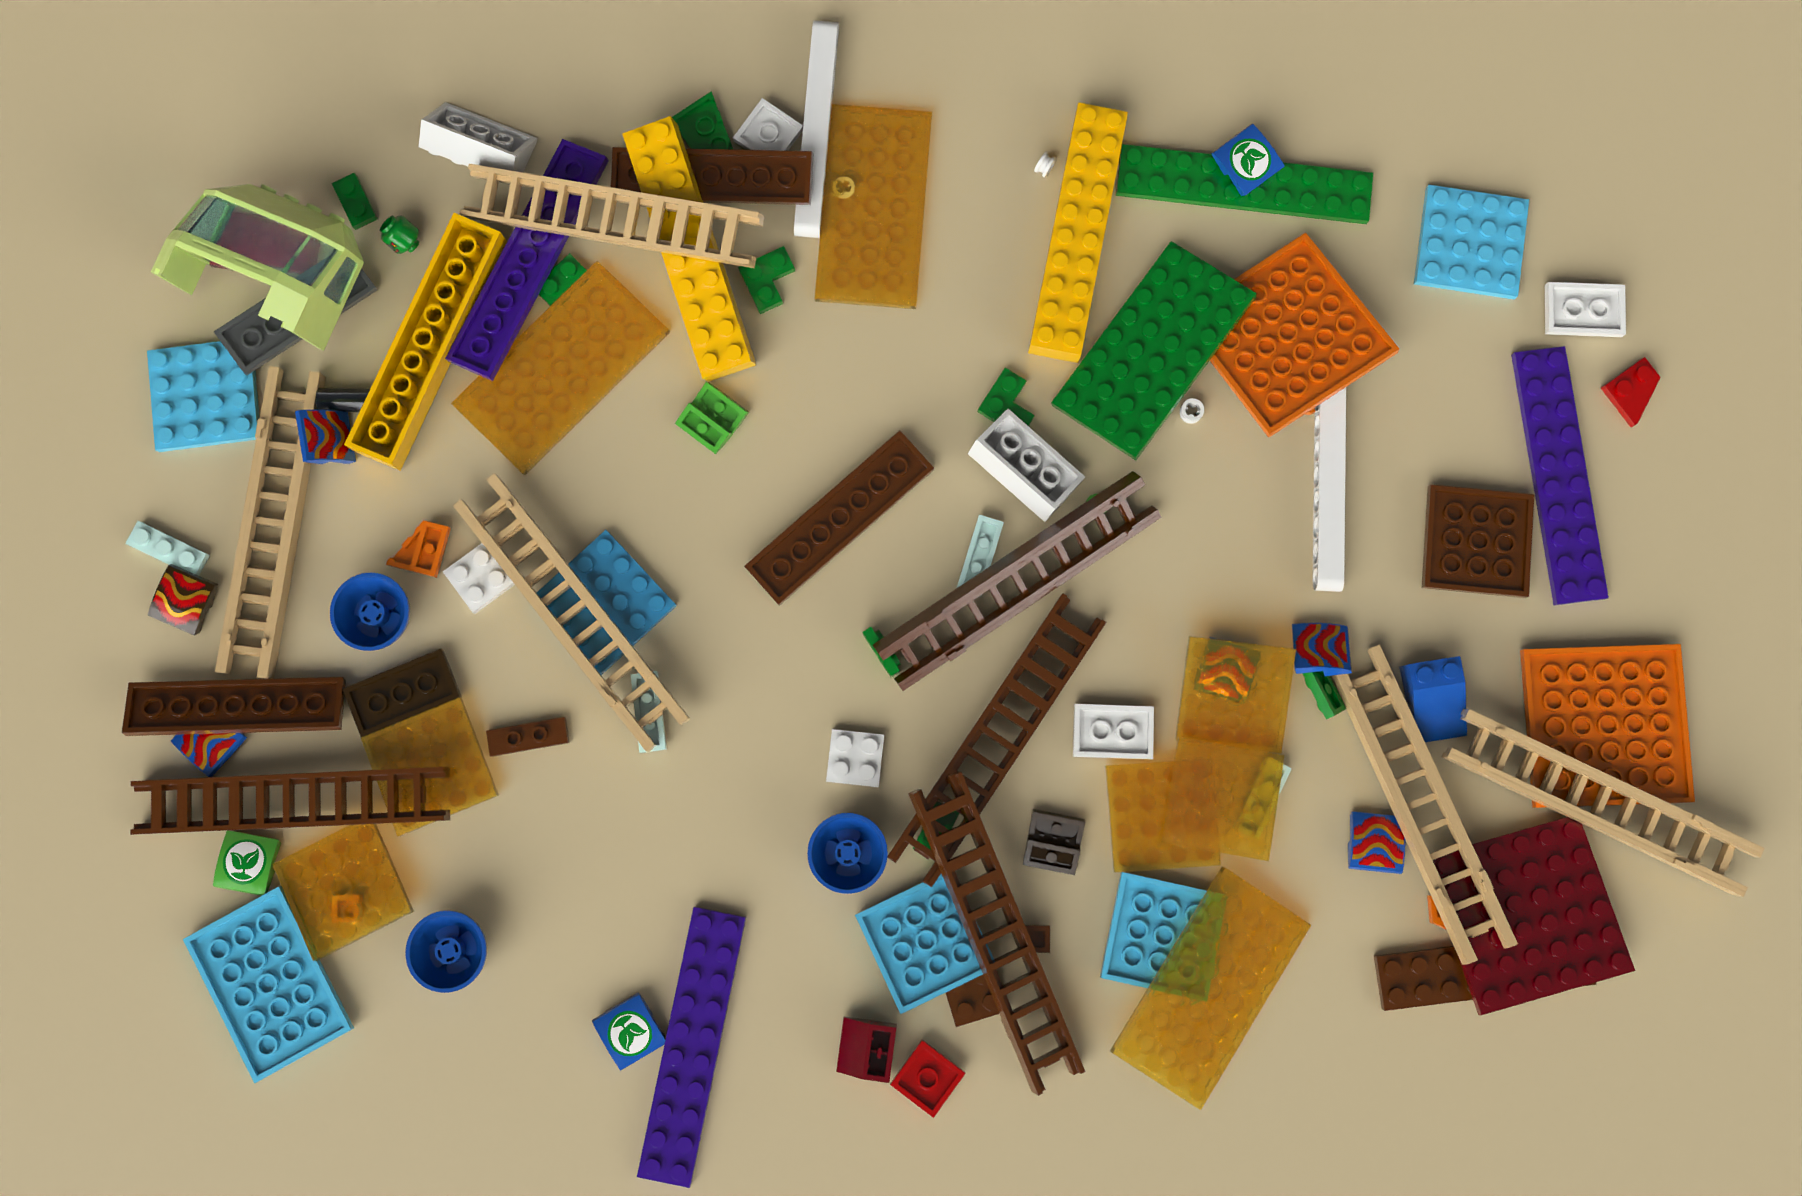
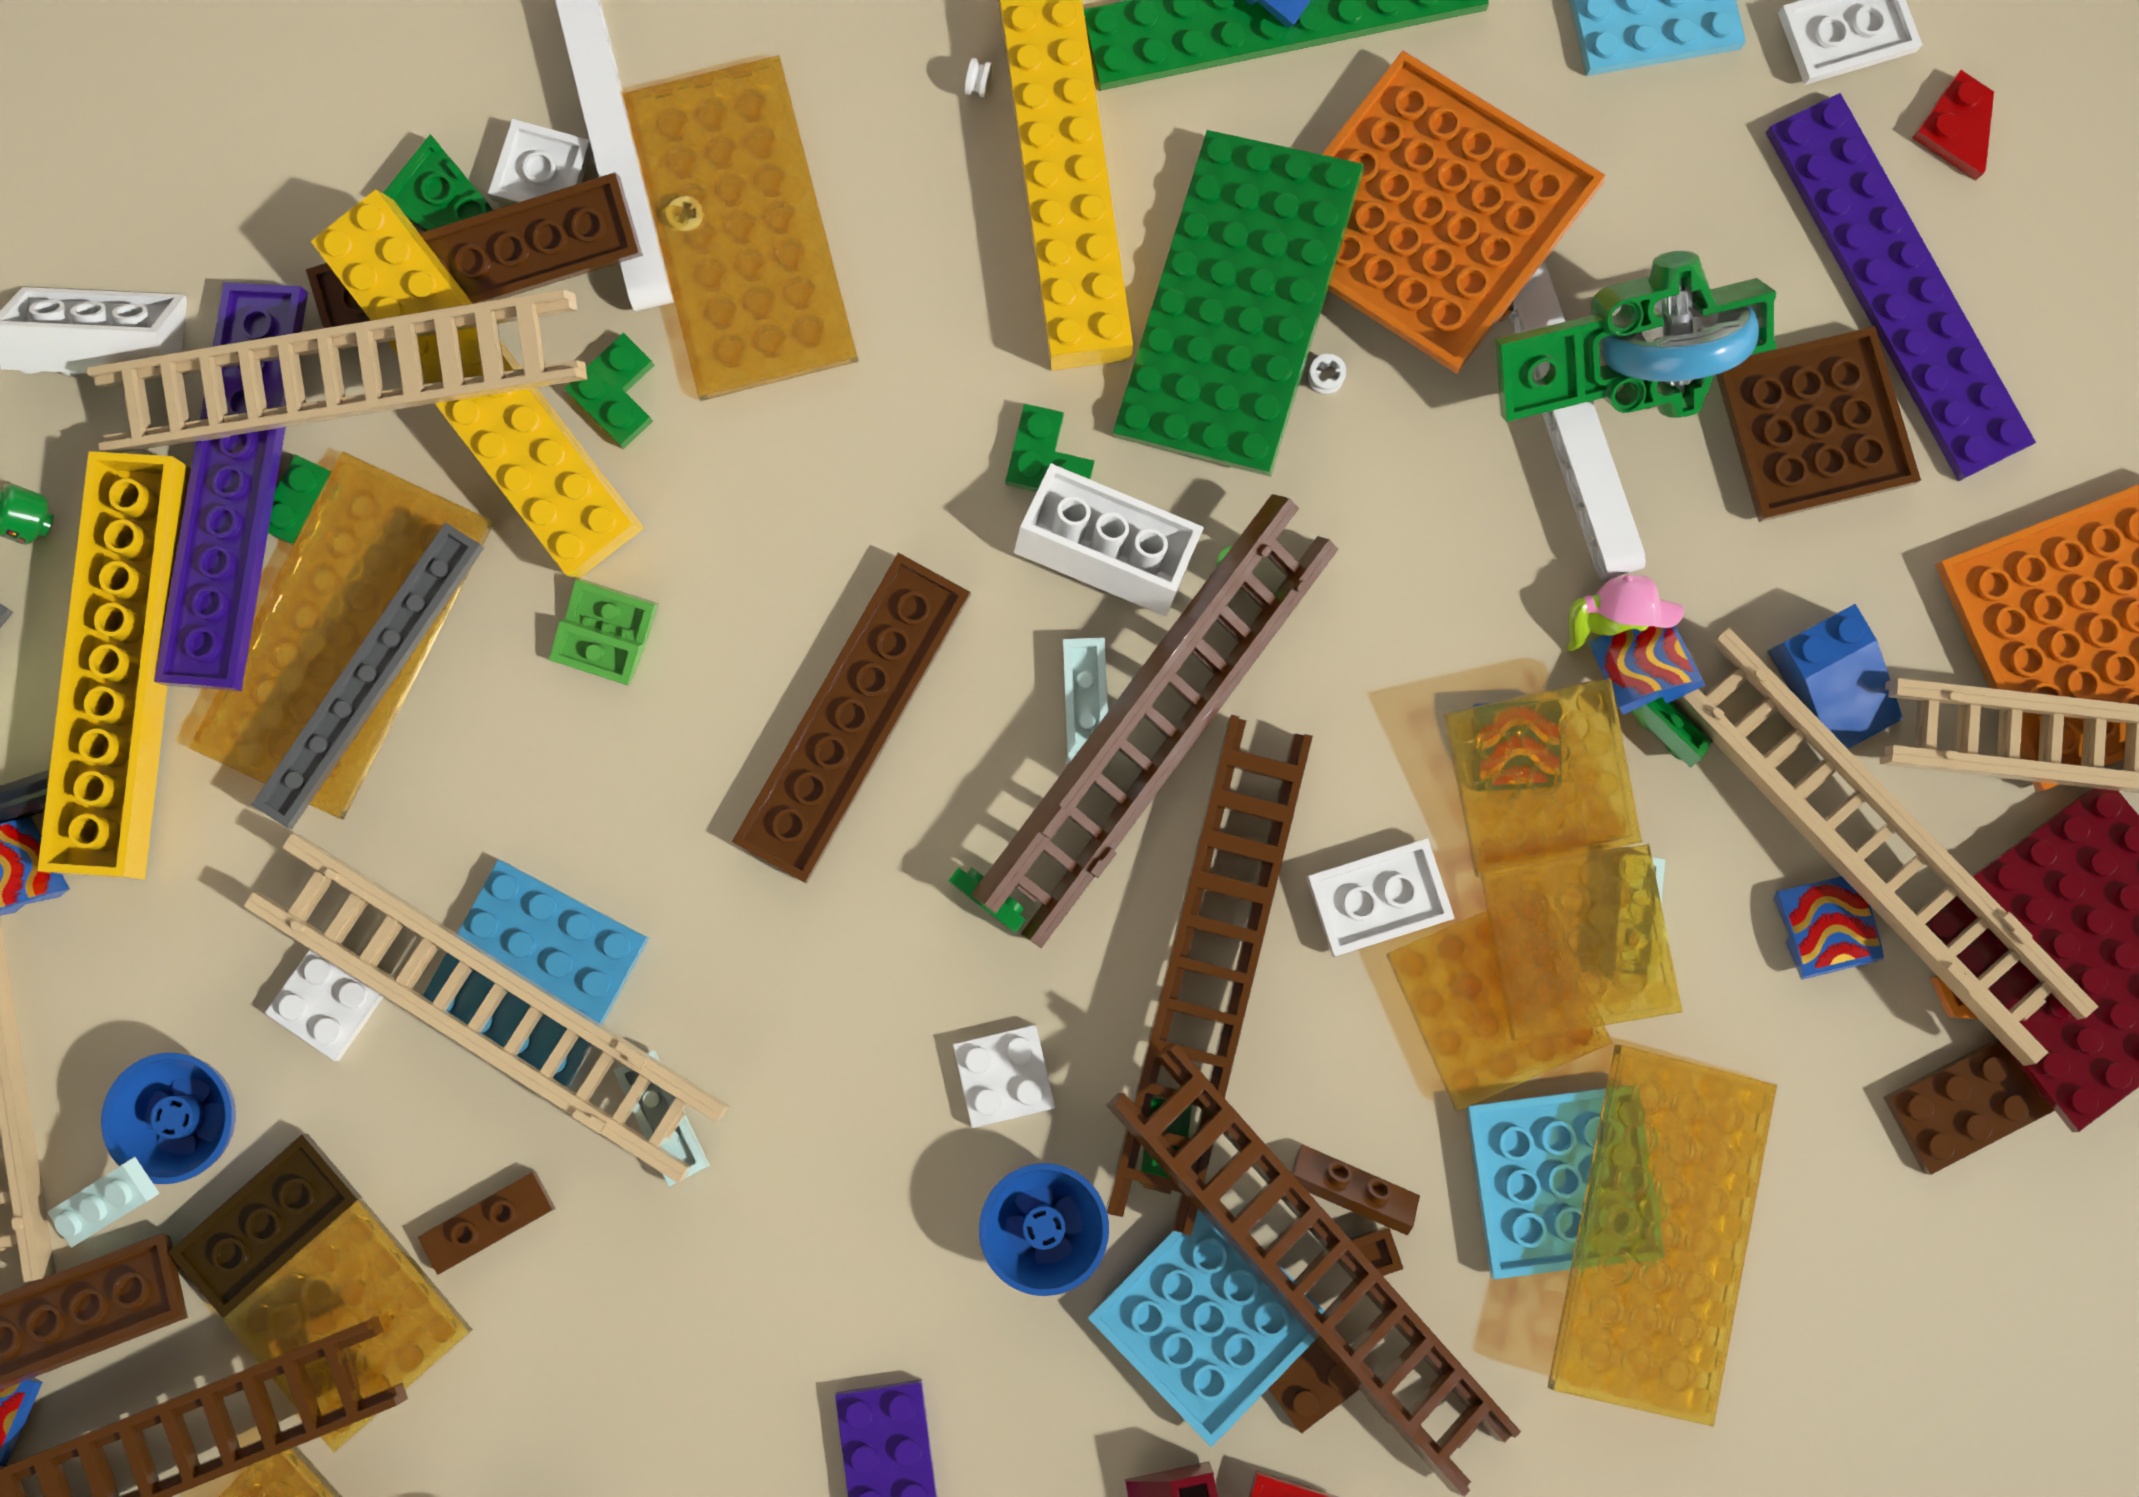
camera: 25 degrees left, 0 degrees up
(316, 647) = (103, 1202): none -> light aqua plate
(423, 550) = (222, 991): orange wing -> none
(568, 397) = (367, 676): none -> dark grey plate
(1038, 897) = (1356, 1189): none -> reddish brown plate
(1054, 842) = (1349, 1096): dark brown slope -> none
(1318, 609) = (1619, 606): none -> bright pink hair
(1397, 459) = (1658, 344): none -> green piece

